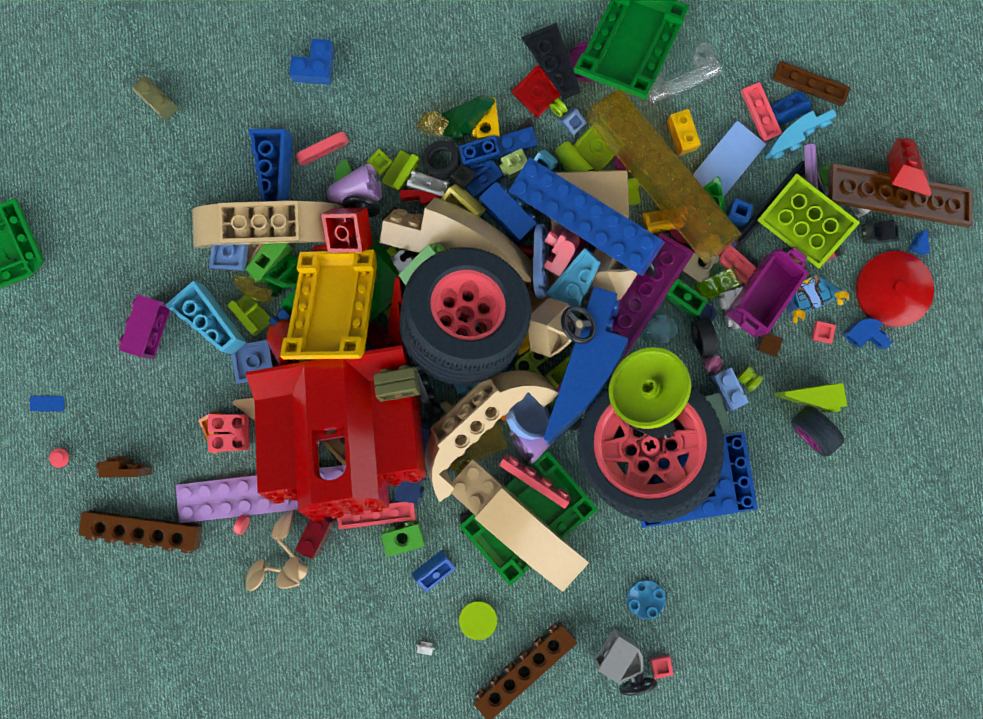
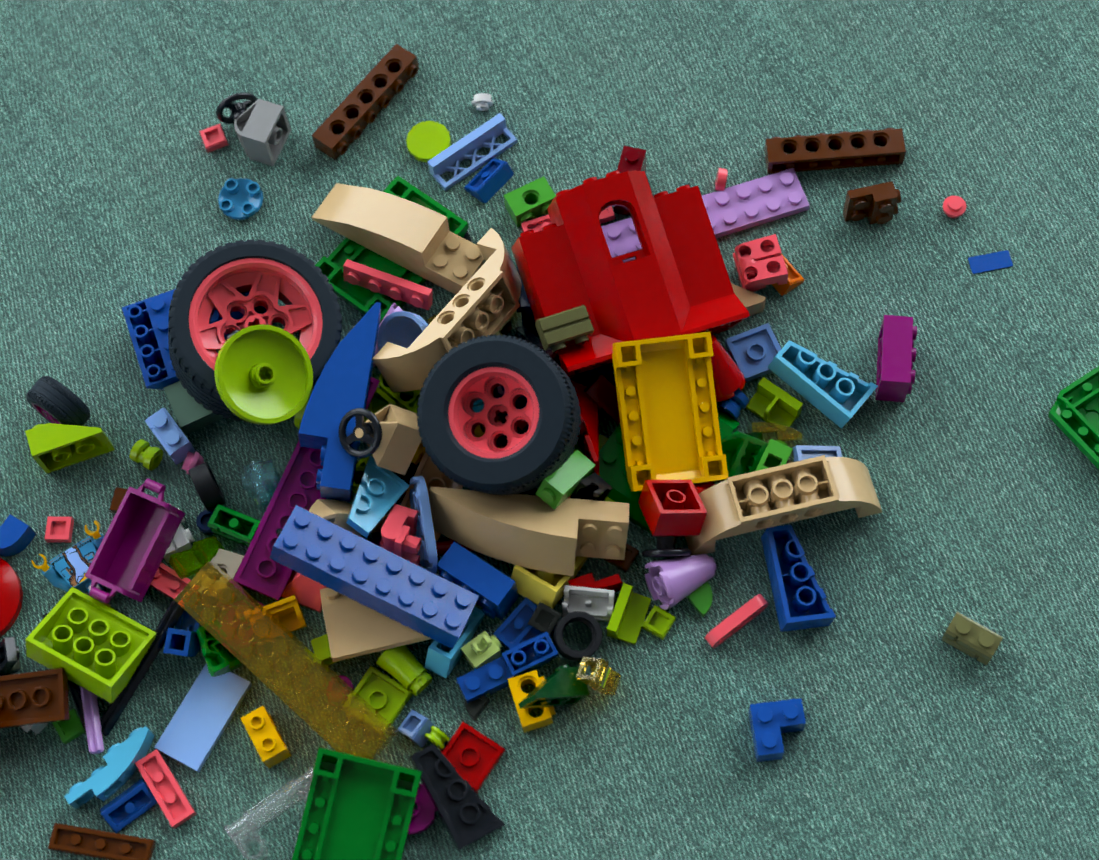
camera: 175 degrees right, 20 degrees down
(292, 570) = (647, 124): tan plant -> none
(442, 607) = (466, 147): none -> light blue fence

